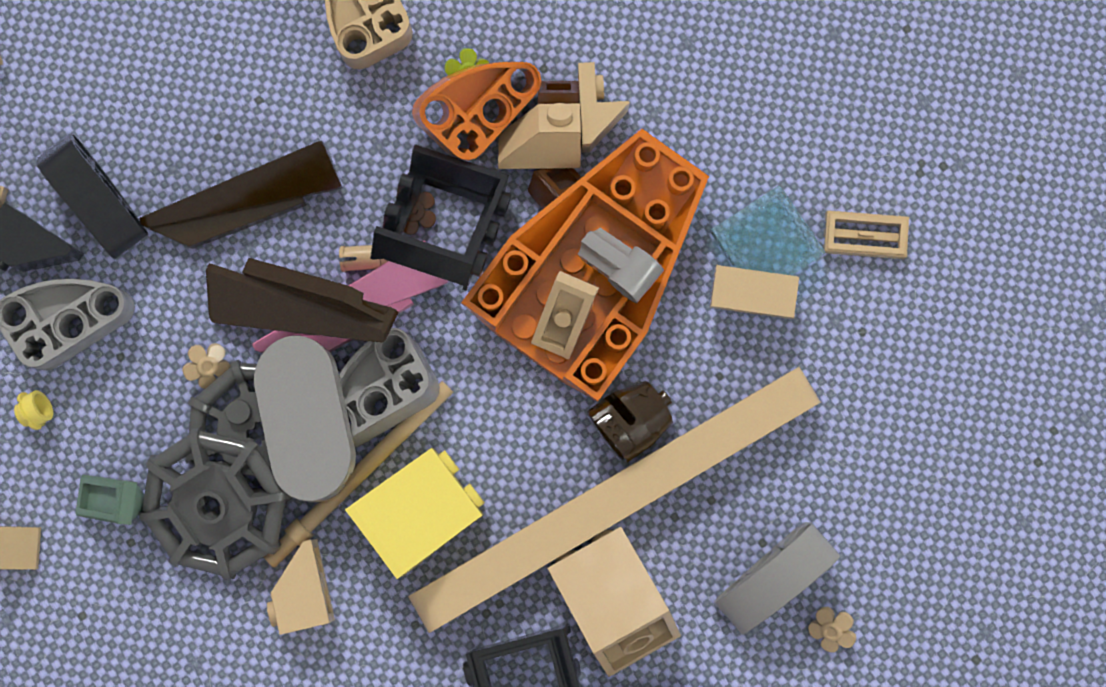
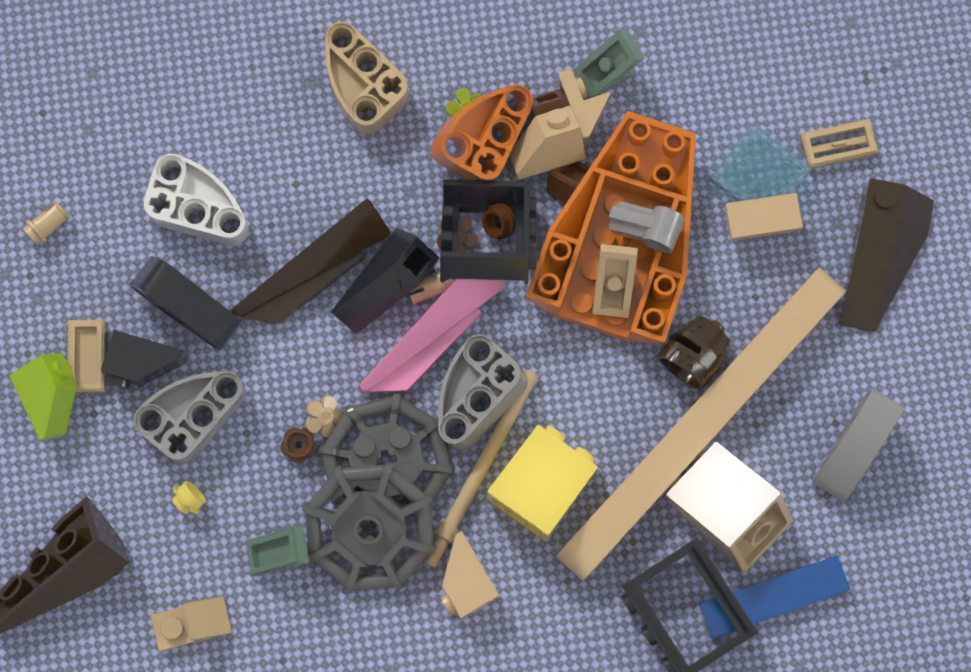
camera: 20 degrees left, 5 degrees down
(134, 75) = (193, 191): none -> white beam
(159, 385) = (295, 435): none -> reddish brown plate
(293, 302) = (385, 338): dark brown wedge -> none
(304, 419) = (425, 431): light grey tile -> none
(320, 234) = (385, 280): none -> black slope
(463, 208) = (499, 221): none -> reddish brown plate
(640, 70) = (610, 63): none -> sand green slope
(833, 629) = (917, 475): tan plant -> none
(883, 360) = (886, 241): none -> dark brown wedge

